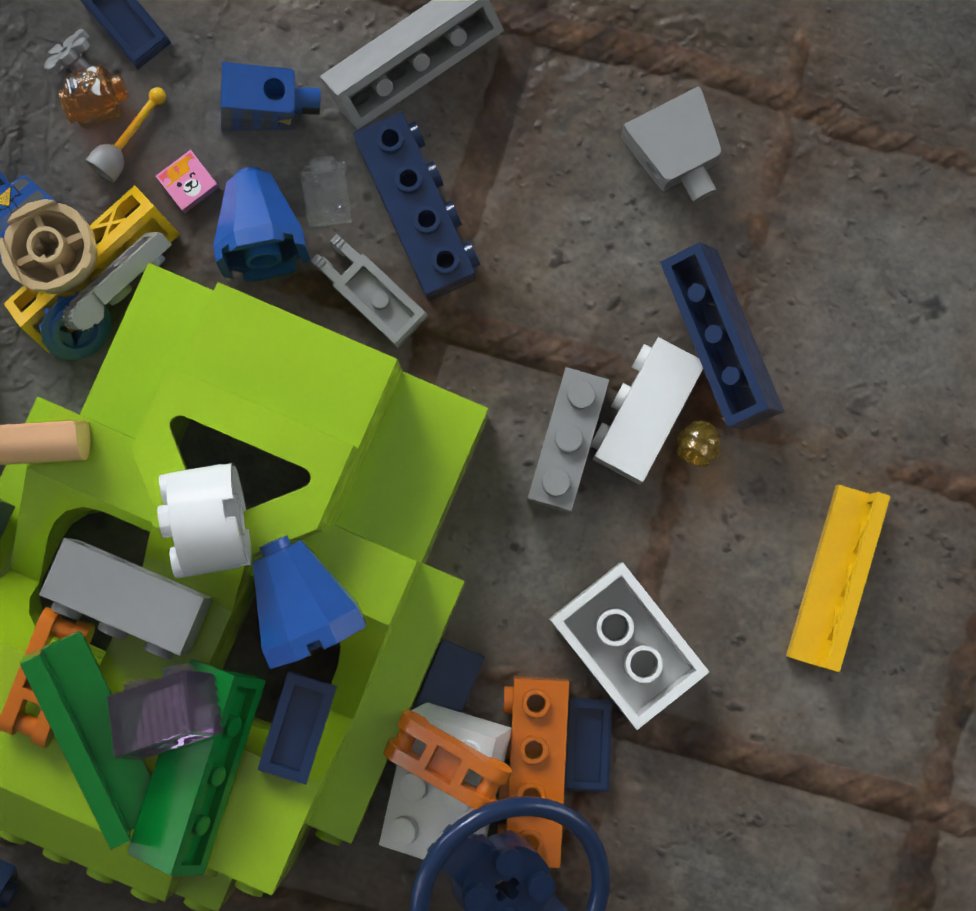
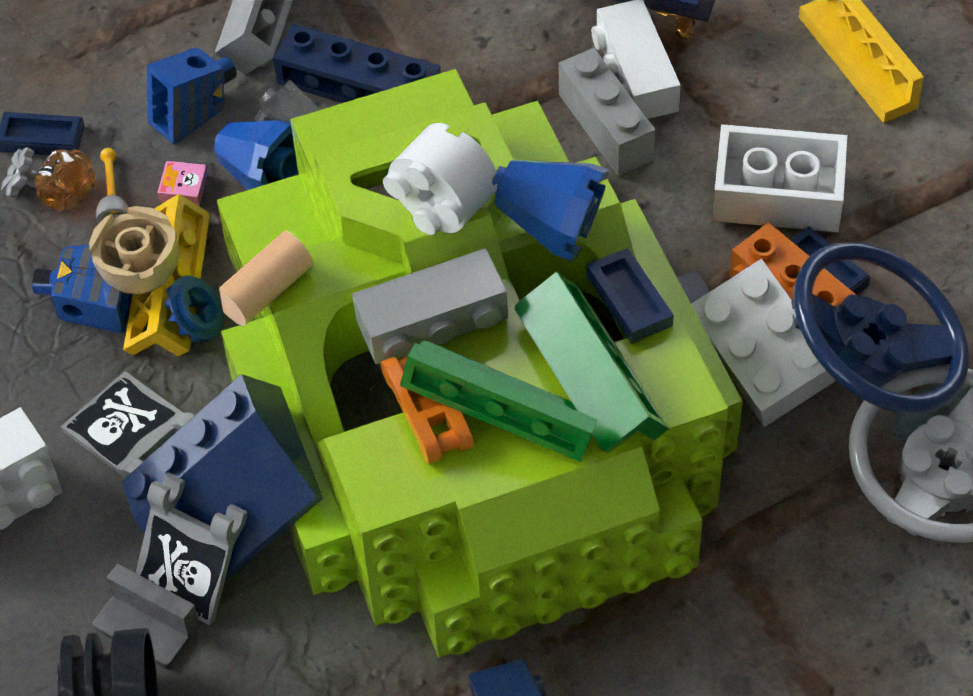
camera: 45 degrees left, 30 degrees down
(113, 282) = (199, 246): light grey hinge -> none
(164, 713) = (534, 332): brick -> none
(446, 761) = (744, 289): orange plate -> none
(699, 443) = (690, 53): clear yellow plate -> none

